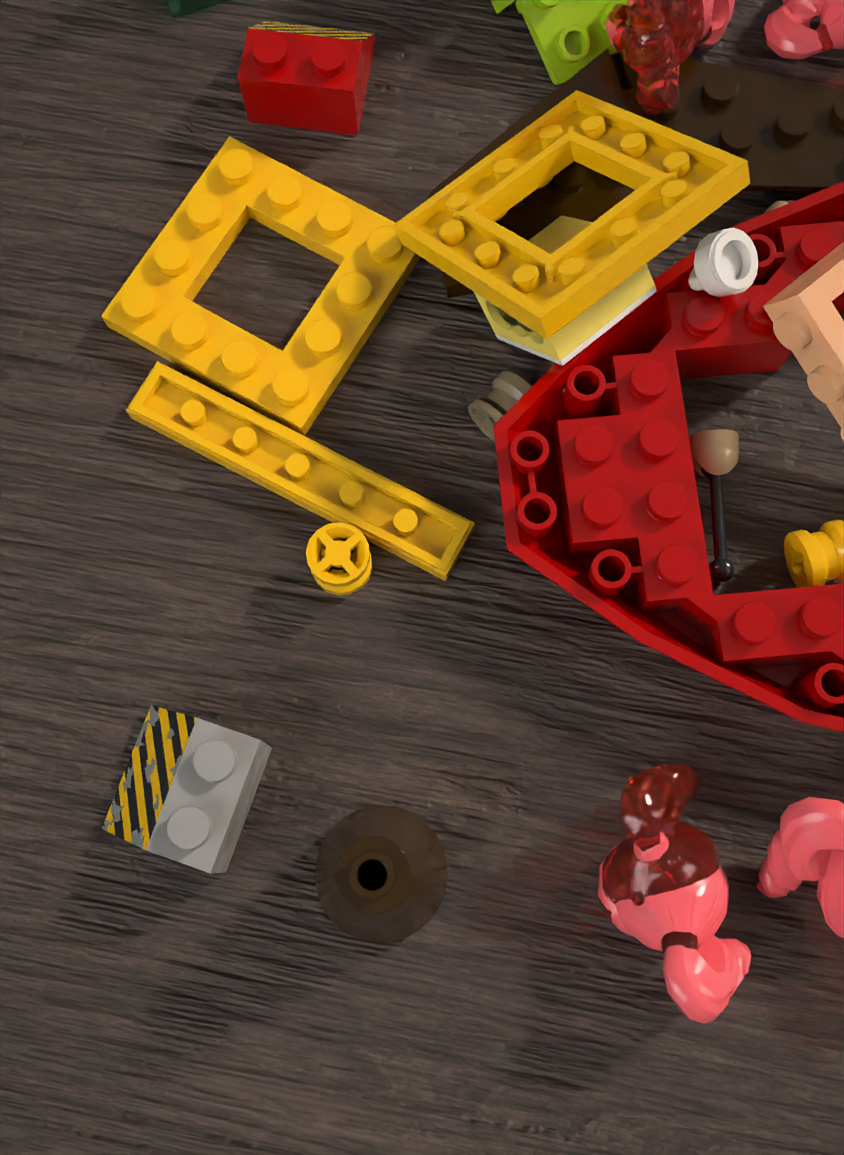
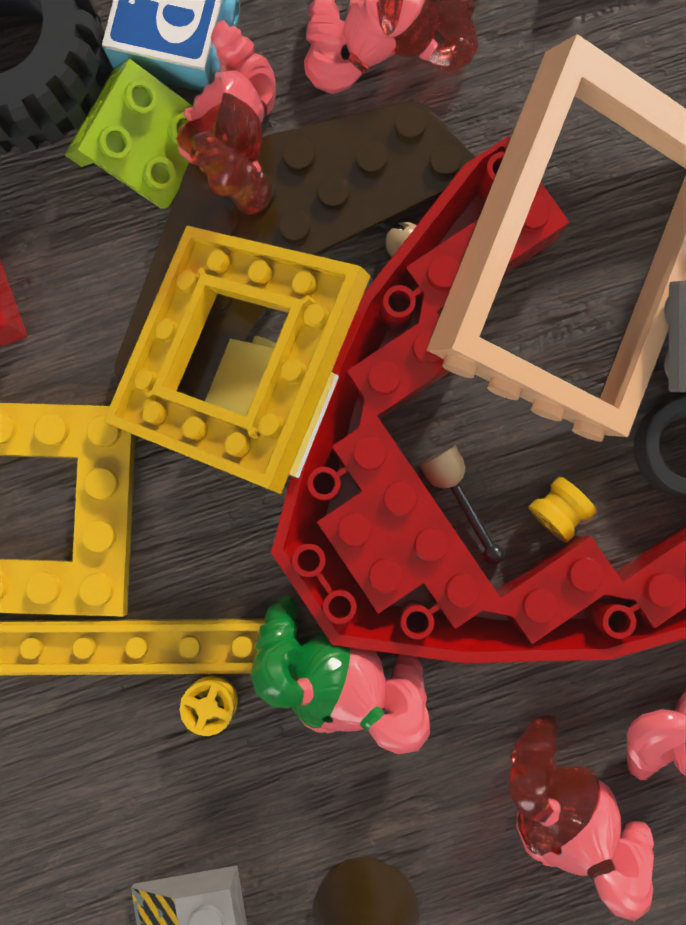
camera: 30 degrees left, 10 degrees up
(489, 409) = (265, 513): dark tan wheel -> none
(494, 595) = (339, 685): none -> hair
(724, 263) = (381, 334): white tile -> none

